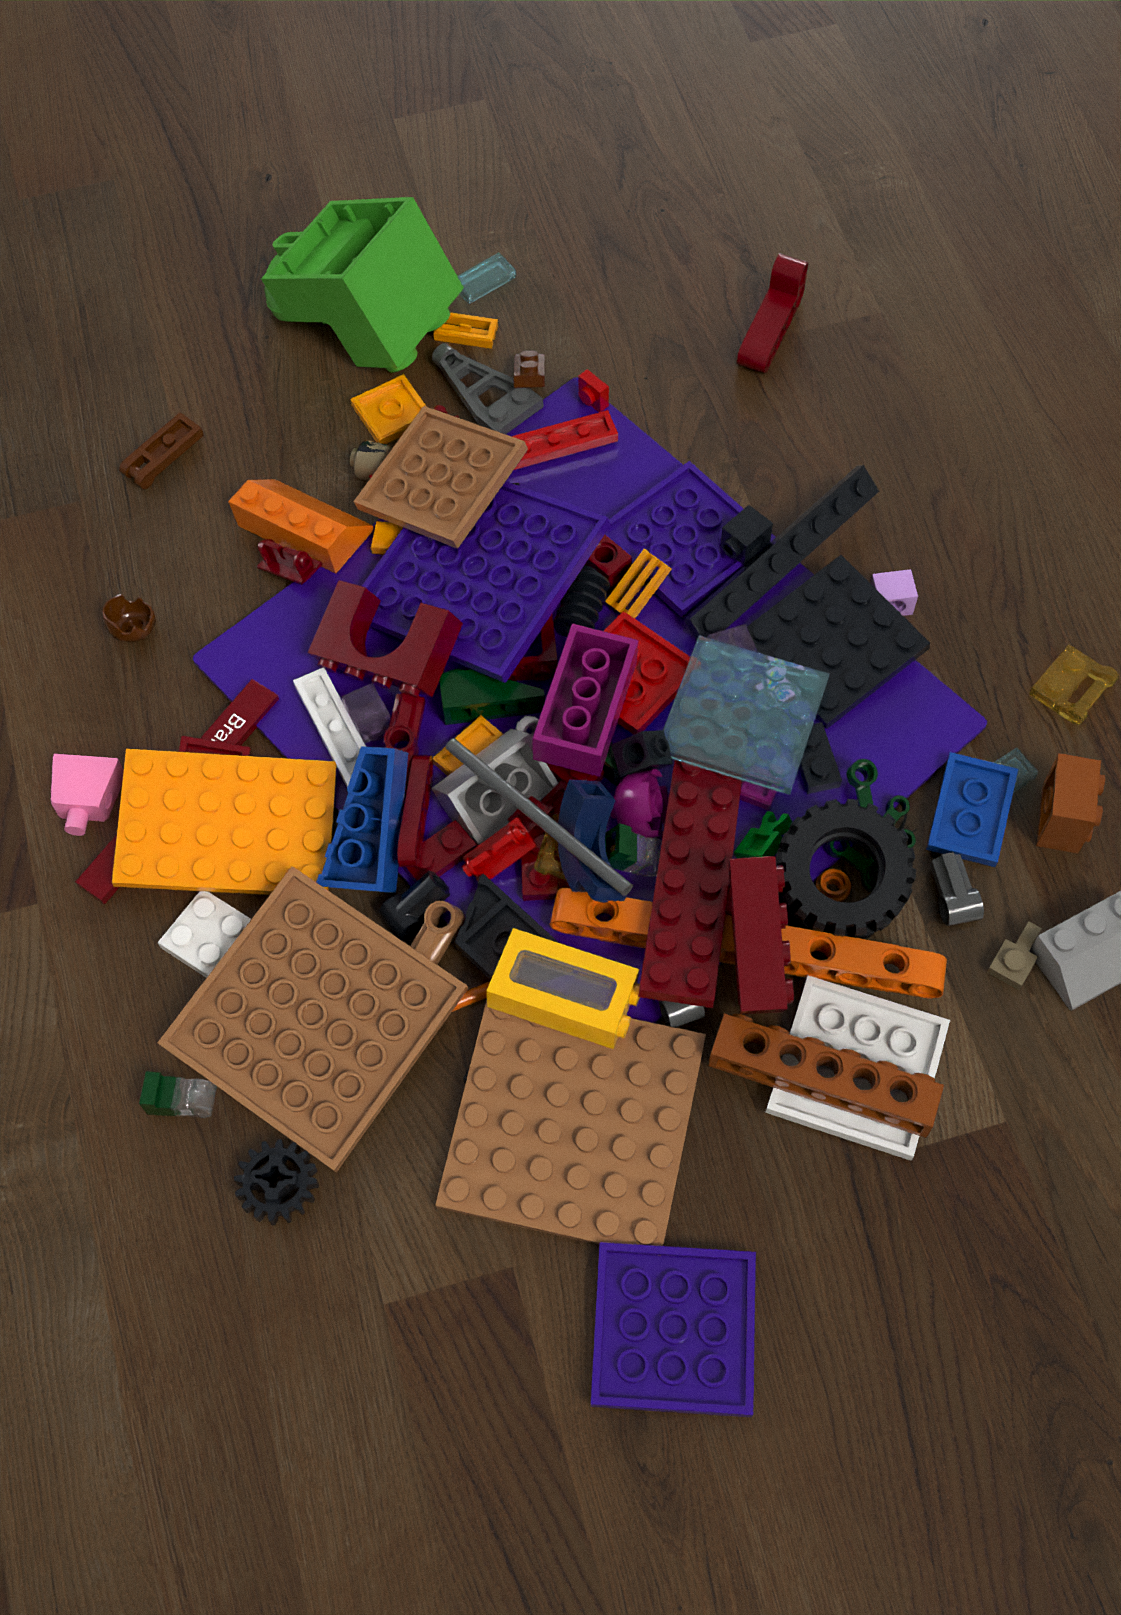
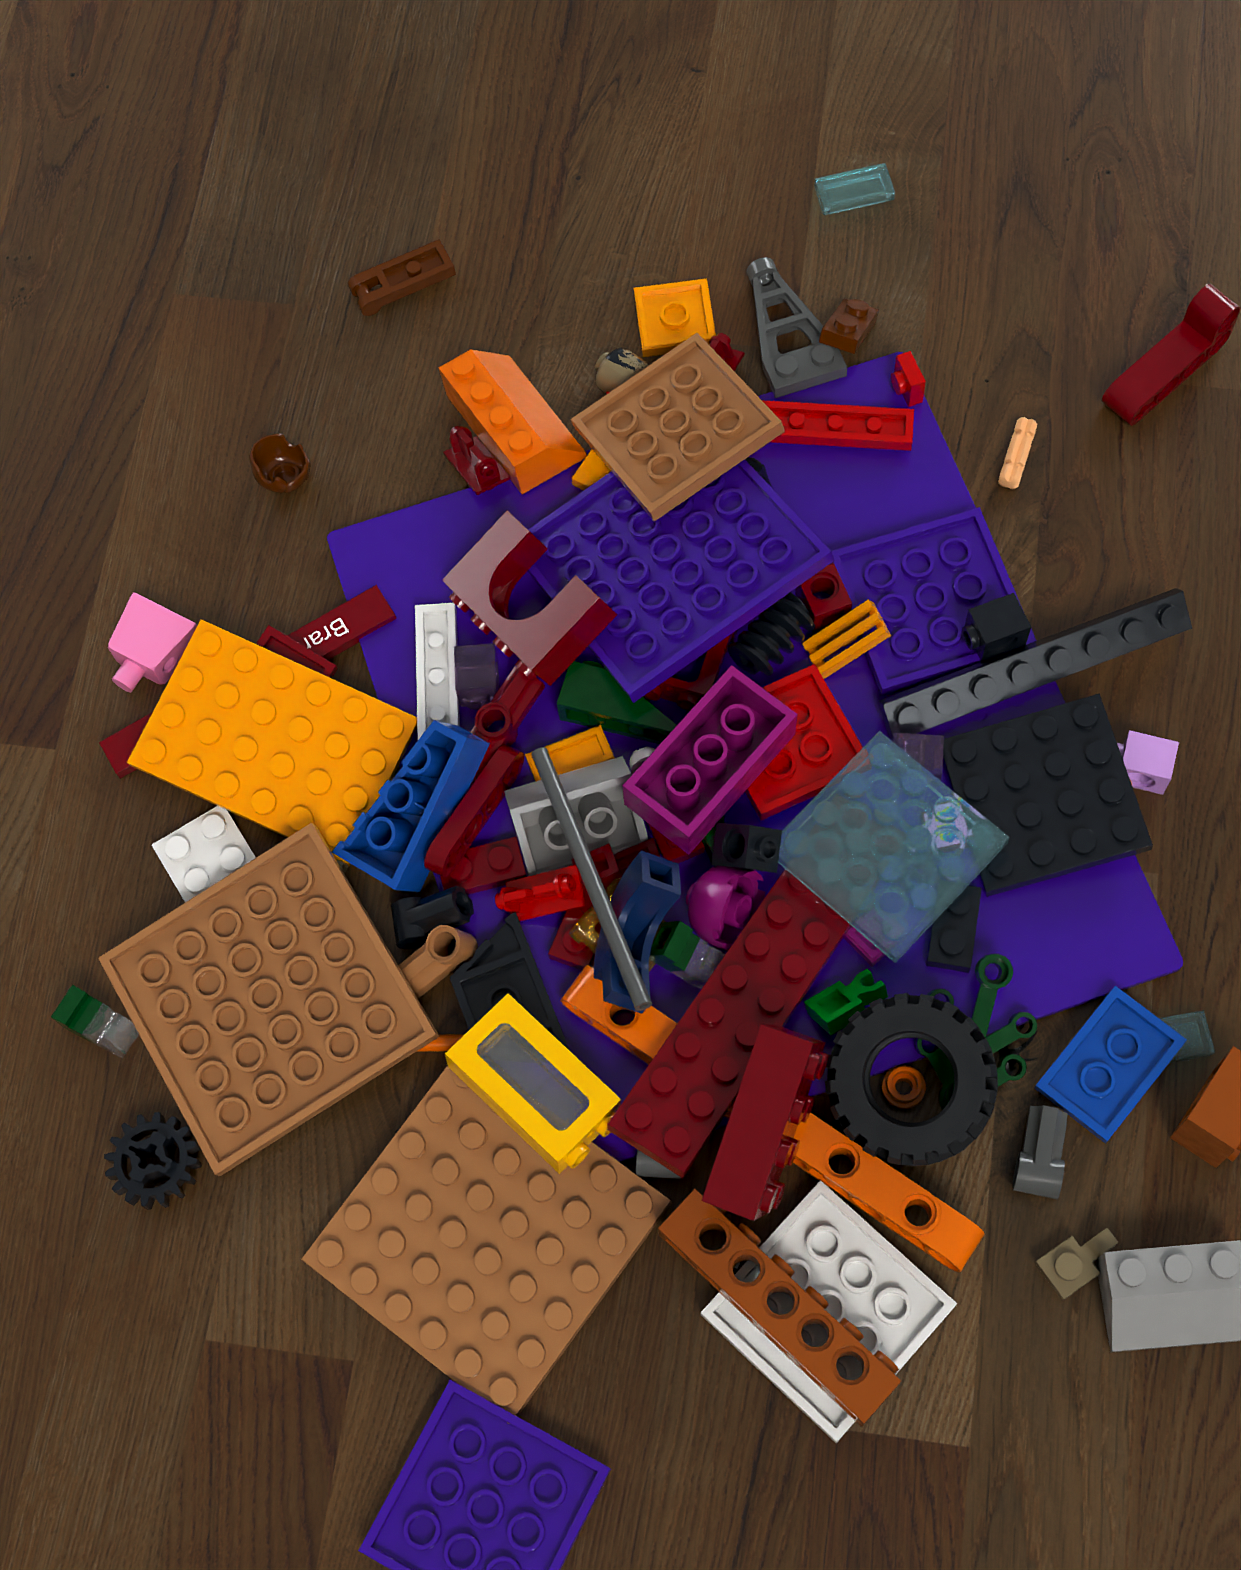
camera: 30 degrees right, 5 degrees up
(368, 275) = (705, 152): bright green piece -> none
(465, 333) = (800, 251): light orange tile -> none
(694, 418) = (1017, 453): none -> light nougat axle

